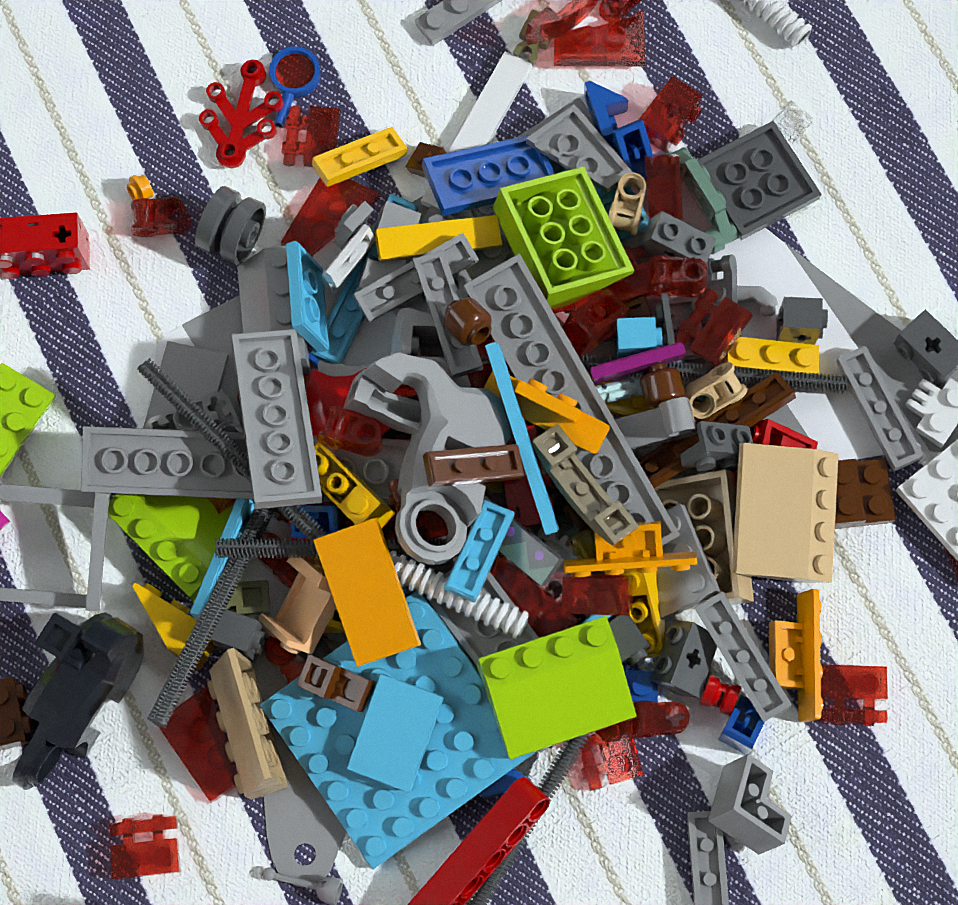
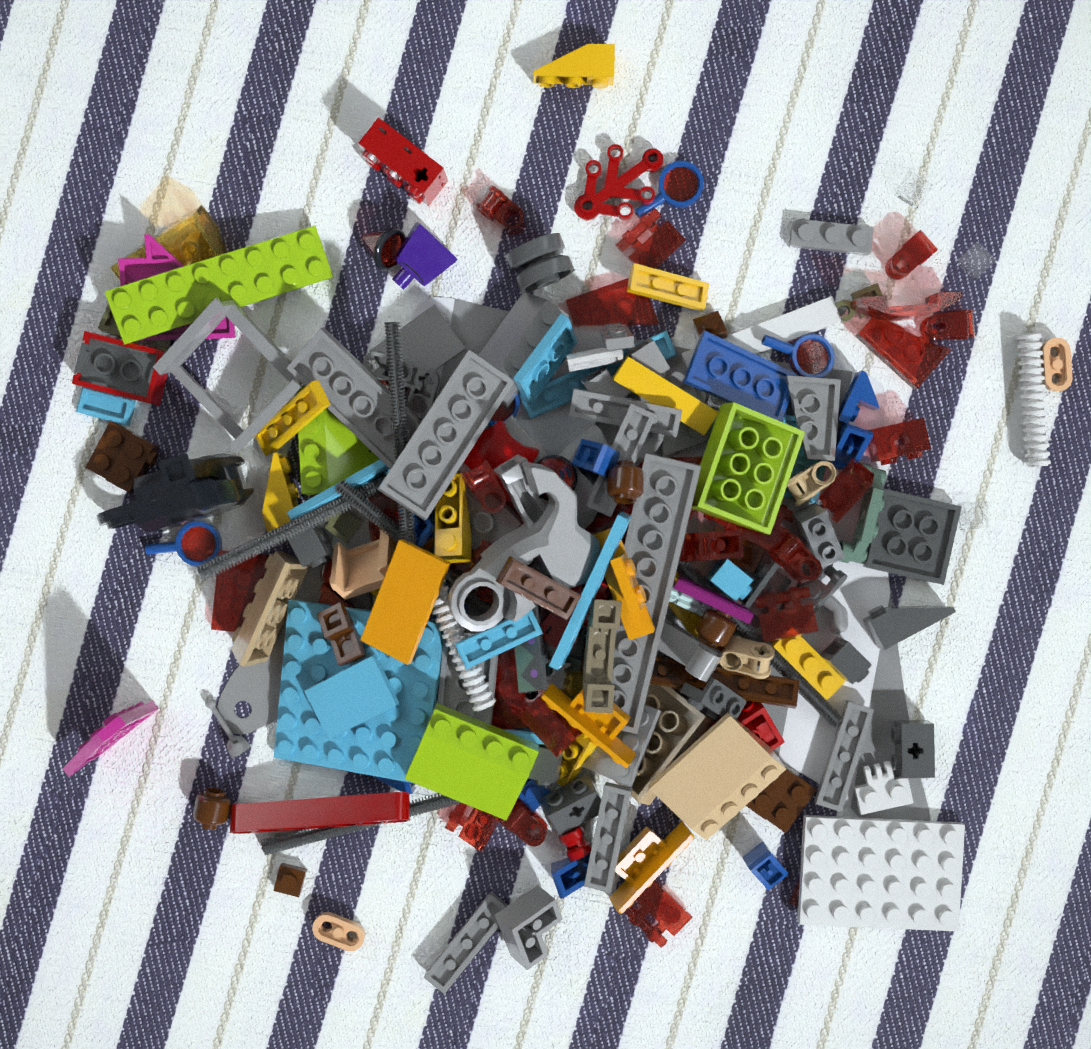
camera: 40 degrees right, 15 degrees up
(81, 329) = (384, 246): none -> clear red hat
(121, 309) = (421, 258): none -> dark purple torso
(123, 535) = (293, 417): none -> yellow tile
(126, 738) = (194, 543): none -> piece
(127, 46) = (584, 66): none -> yellow slope
(139, 187) = (505, 179): light orange plate -> none
(146, 857) = (143, 628): clear red plate -> none
(421, 325) = (595, 457): none -> blue slope
(527, 112) = (807, 356): none -> piece
(815, 254) = (896, 624): none -> dark grey slope
(906, 563) = (765, 866): none -> blue slope

